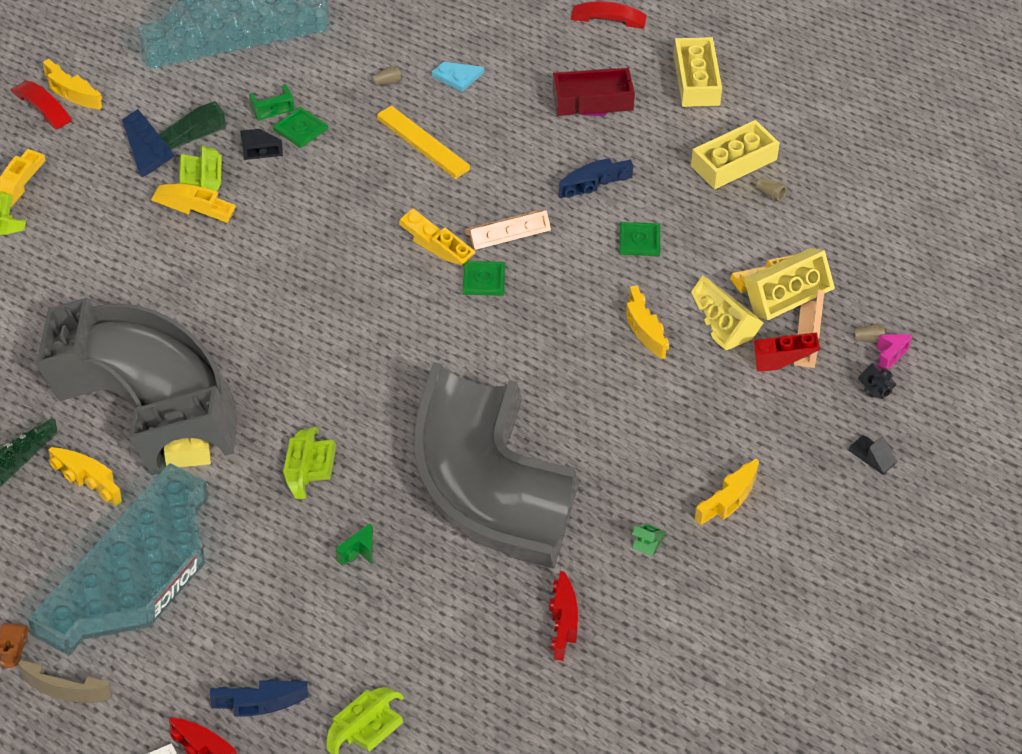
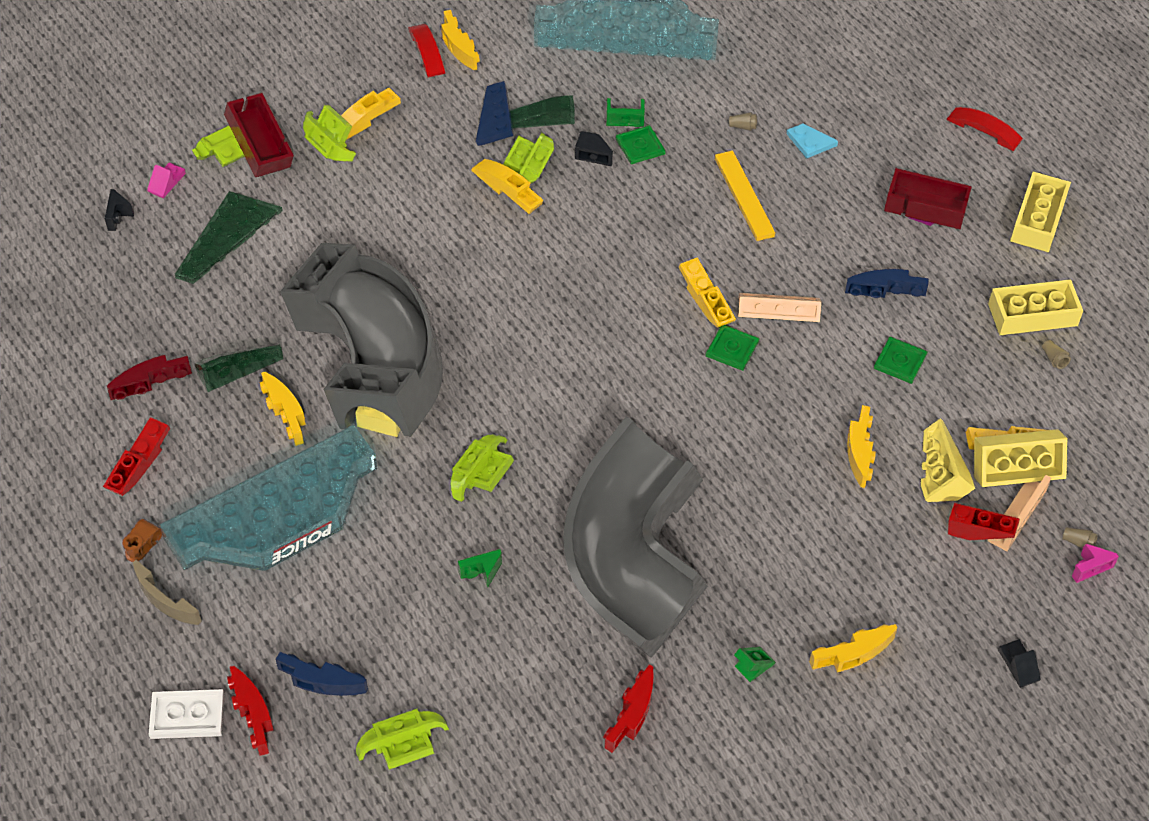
camera: 25 degrees right, 5 degrees up
(877, 381) = (1060, 590): black brick -> none

